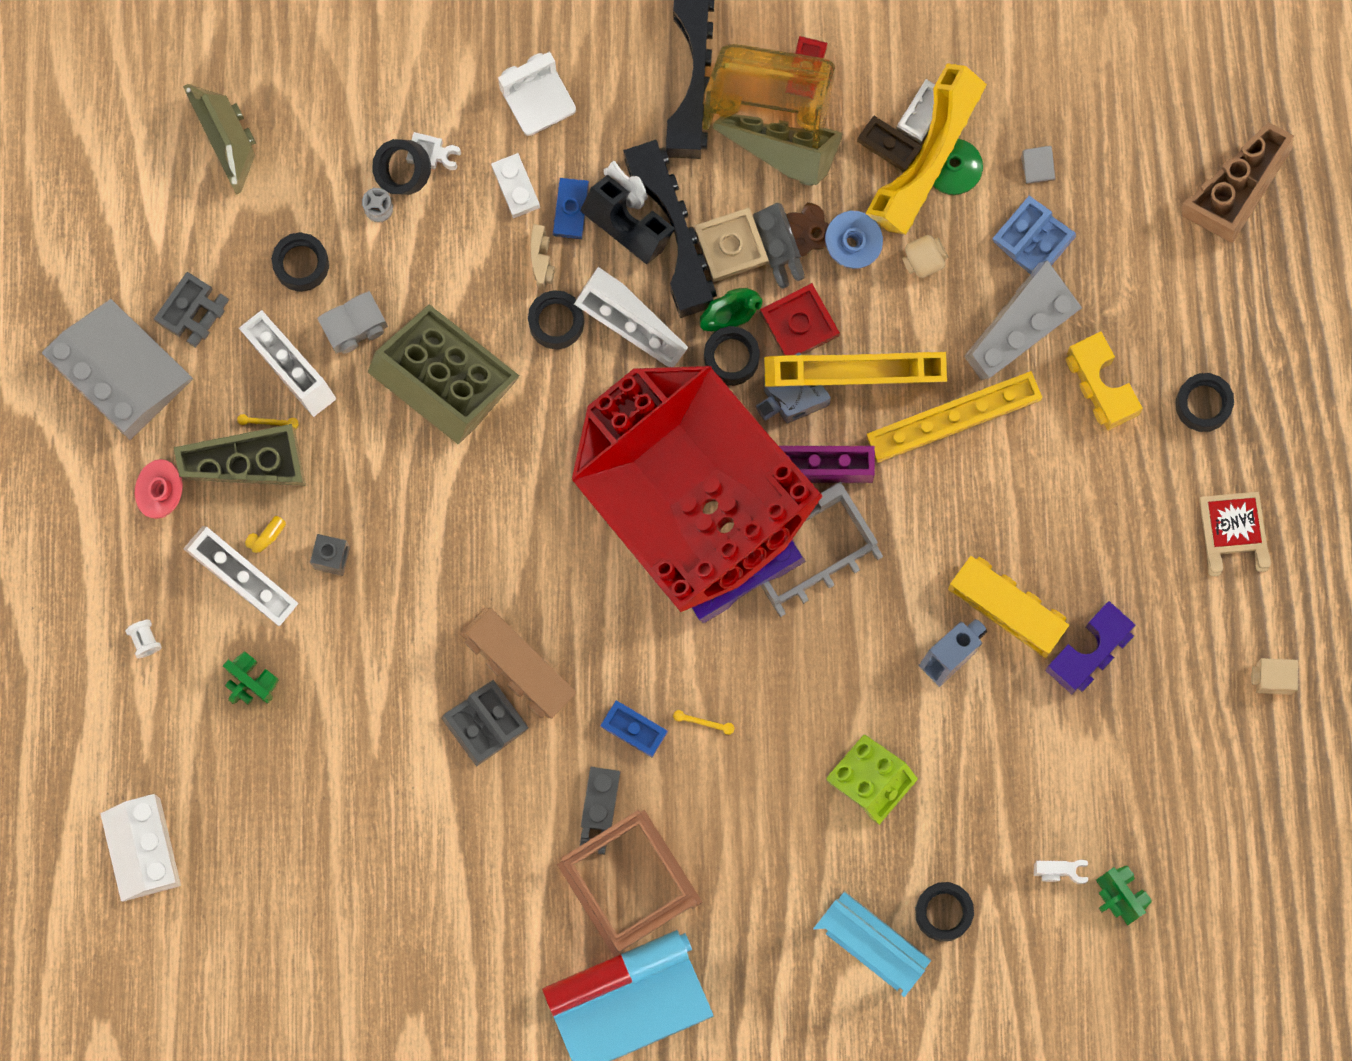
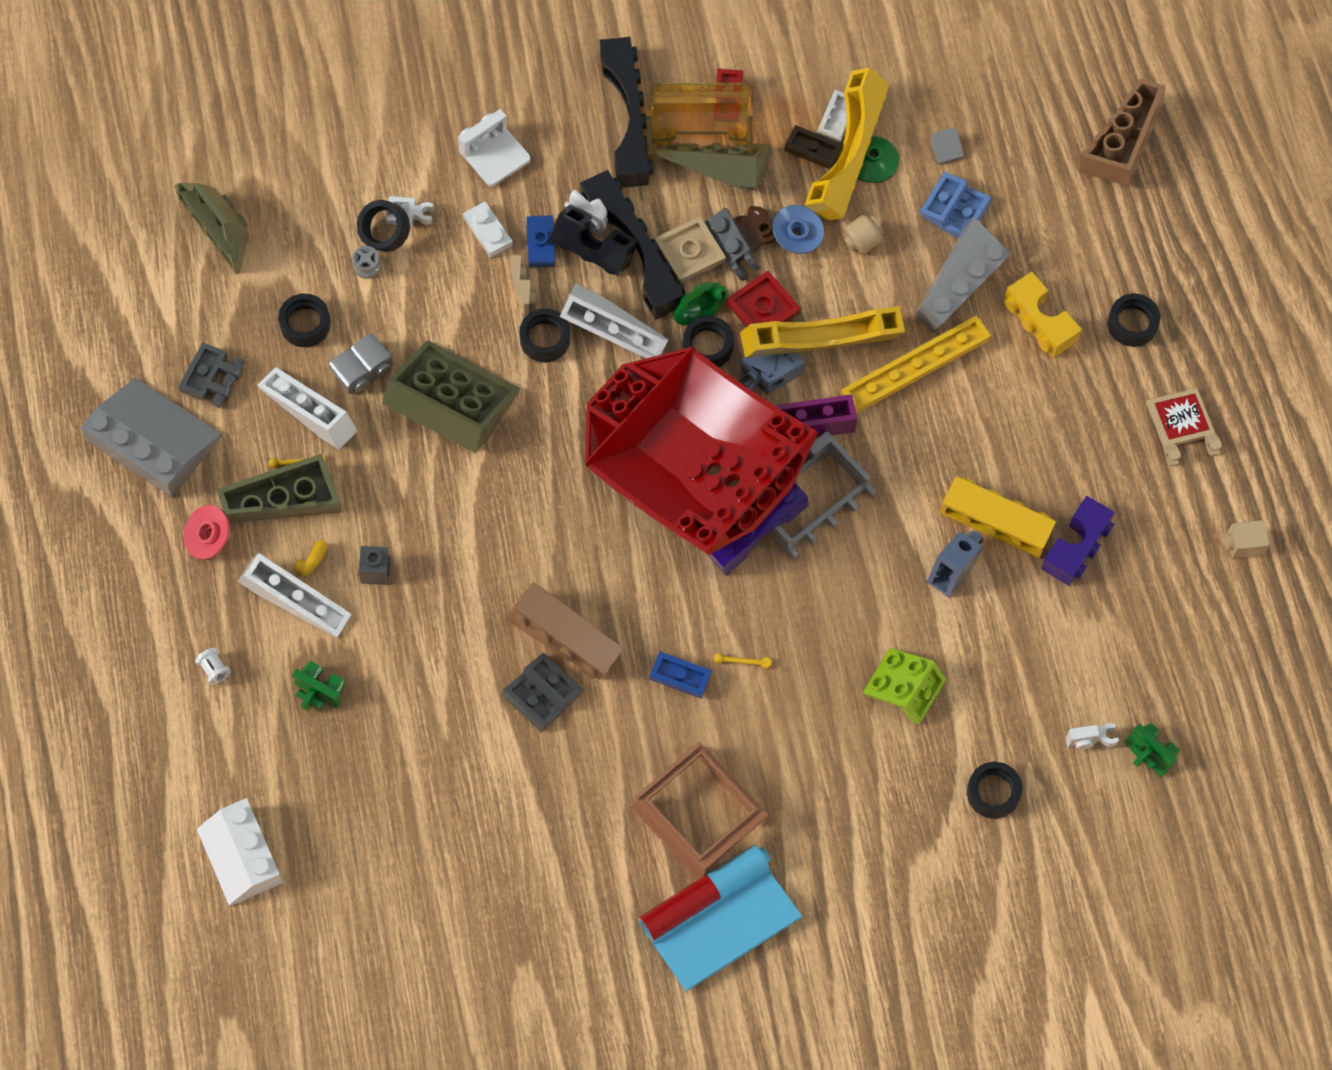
camera: 15 degrees left, 10 degrees down
(599, 802) = (660, 744): dark grey hinge -> none
(874, 943) = (937, 821): medium azure piece -> none

